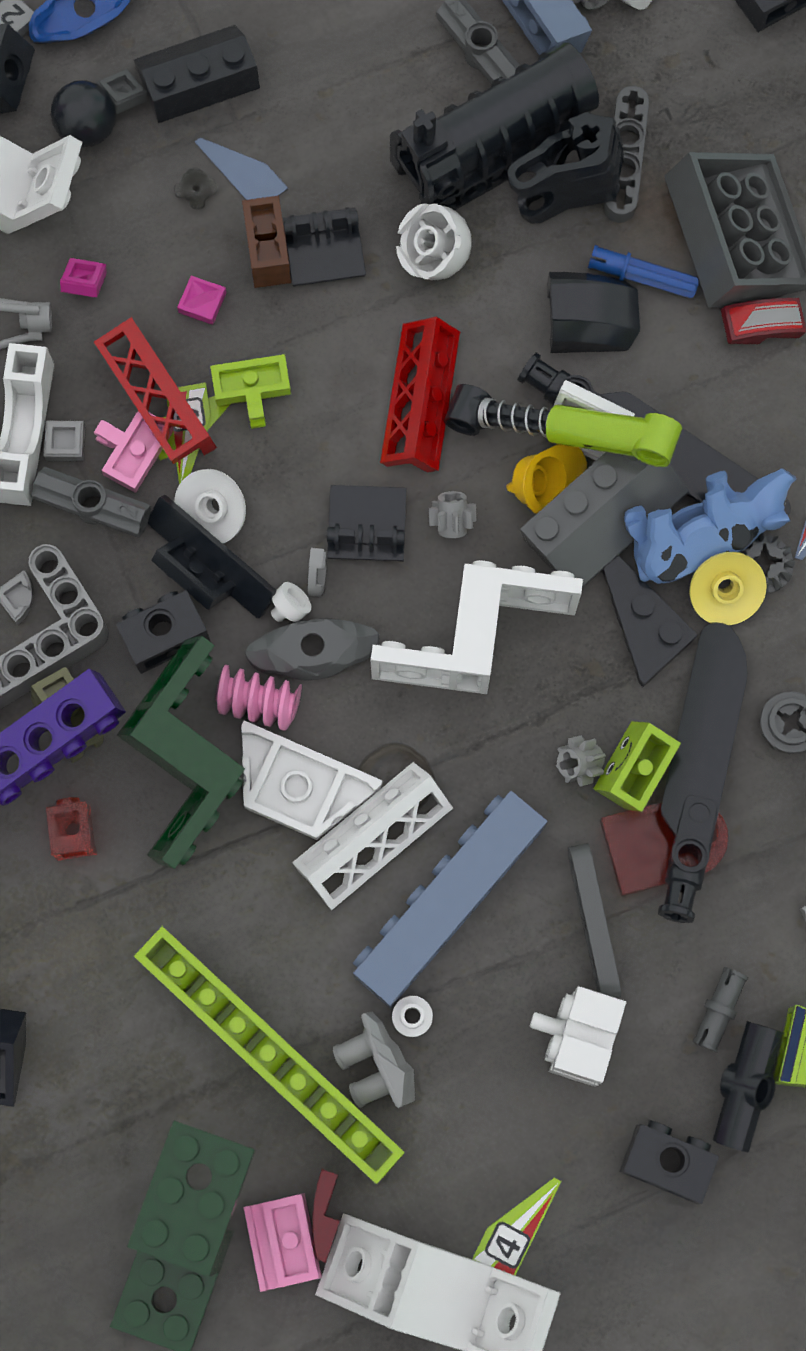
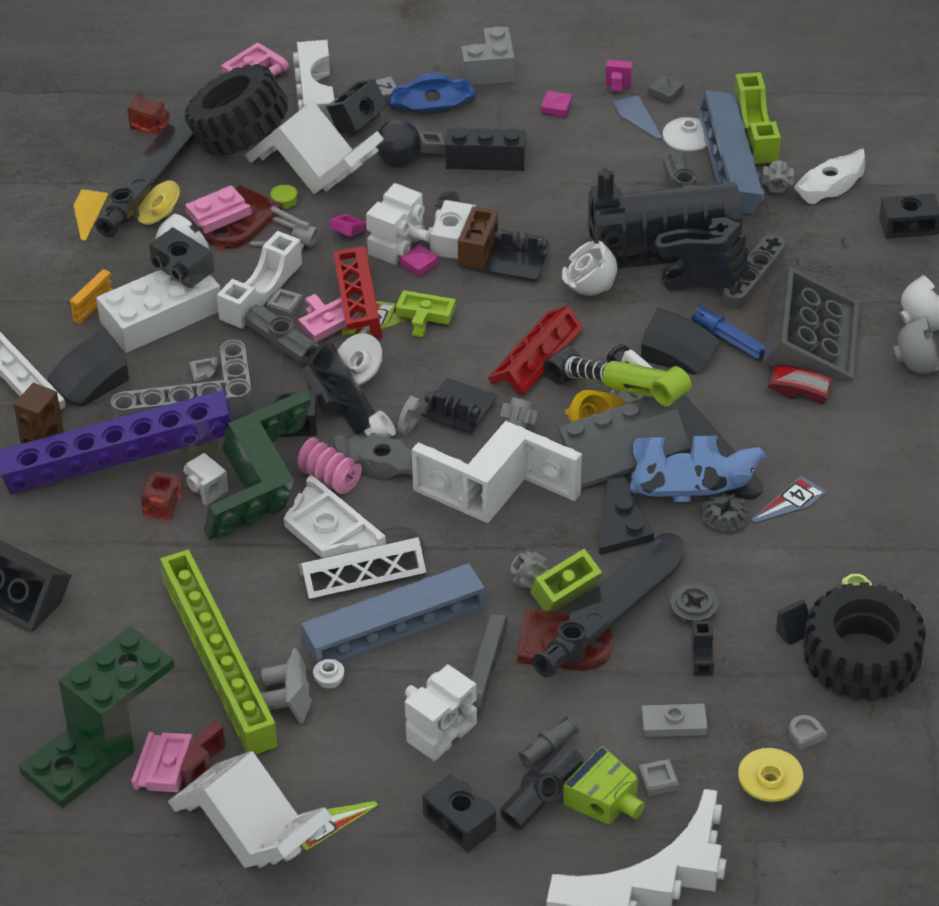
camera: 25 degrees right, 30 degrees down
(112, 779) = (206, 478): none -> white brick
(153, 263) = (395, 224): none -> white brick
(221, 214) = (447, 228): none -> white brick
(247, 175) = (483, 201): sand blue sticker -> none
(737, 600) = (684, 496): light yellow dish -> none

